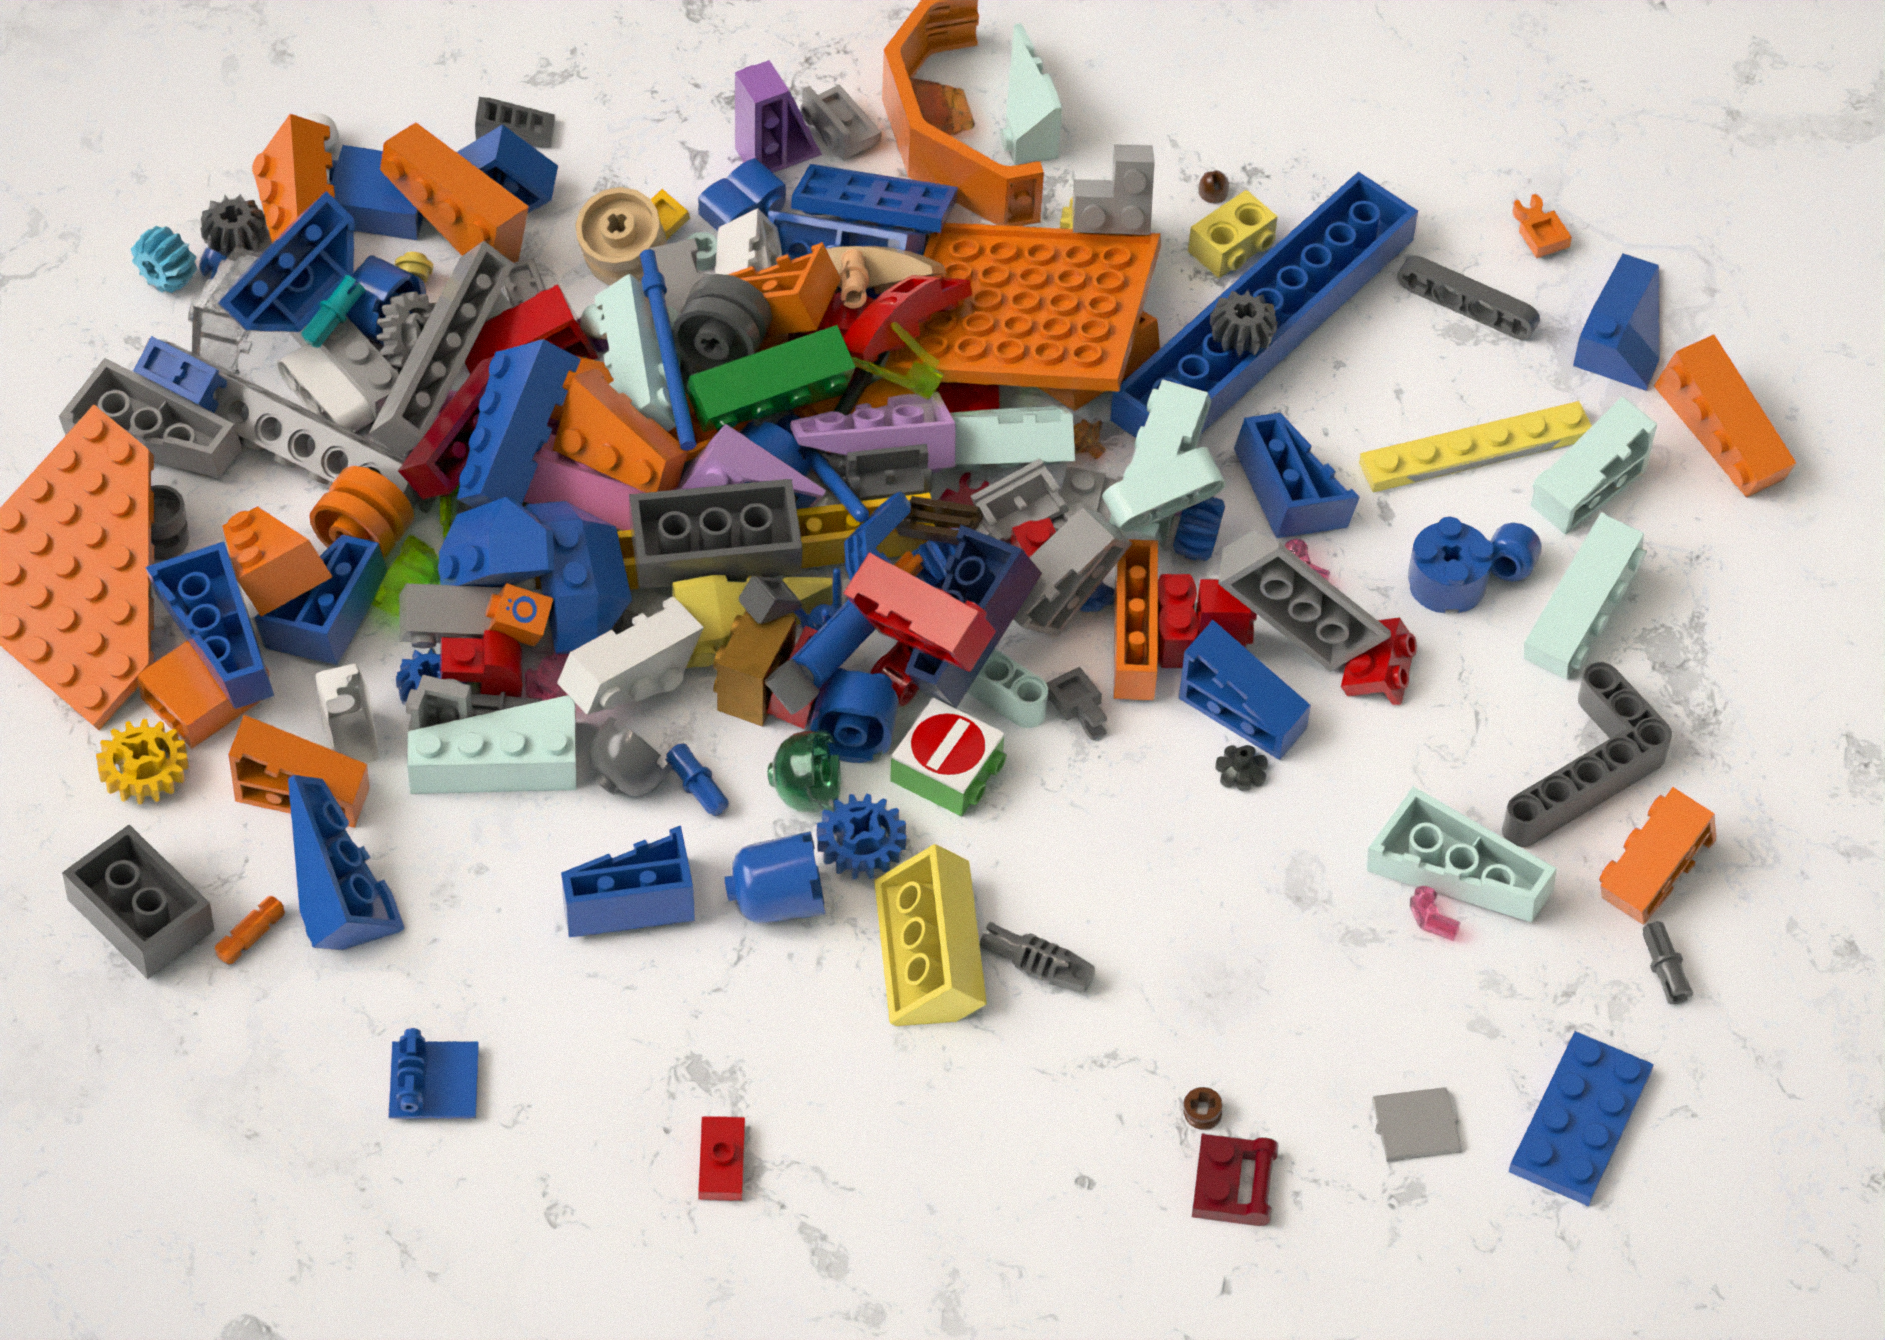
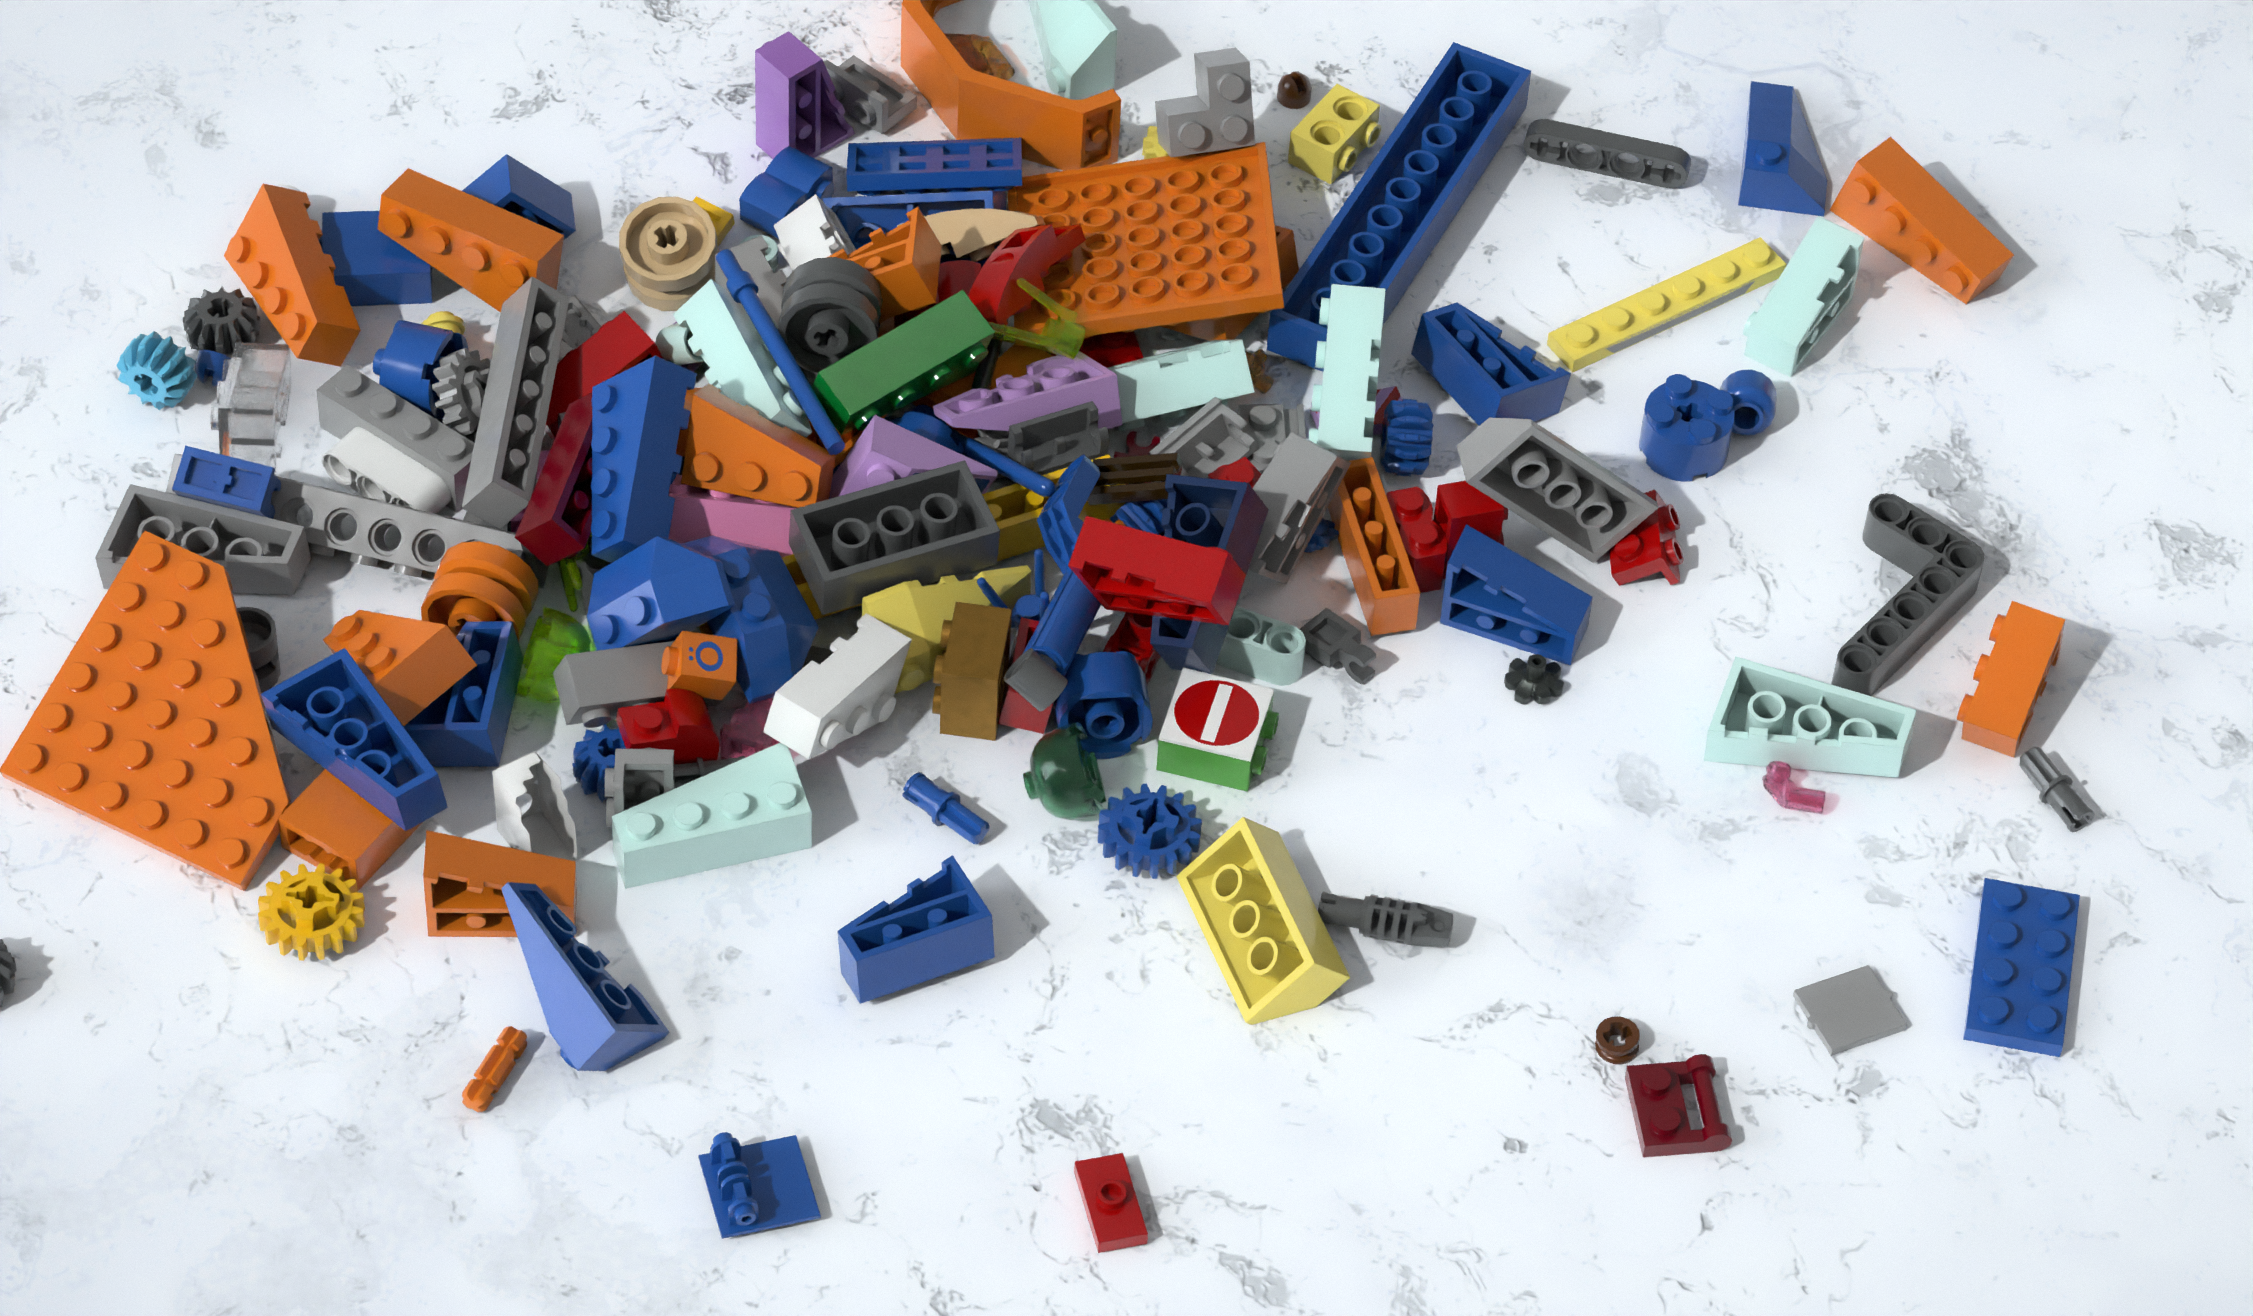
camera: 15 degrees left, 5 degrees down
(138, 901) = (361, 1061): dark grey brick -> none
(295, 271) = (327, 347): blue wedge -> none
(332, 312) = (378, 386): teal axle -> none
(494, 113) = (480, 153): dark grey slope -> none
(625, 761) = (864, 801): dark grey cylinder -> none
(768, 599) = (976, 594): dark grey slope -> none
(777, 880) = (1077, 892): blue cylinder -> none
(853, 278) = (954, 244): light nougat pin -> none
(1164, 490) = (1371, 398): light aqua beam -> none
(1243, 322) = (1390, 215): dark grey gear -> none
(1541, 231) = (1659, 73): orange plate -> none
(1585, 596) = (1842, 431): light aqua wedge -> none

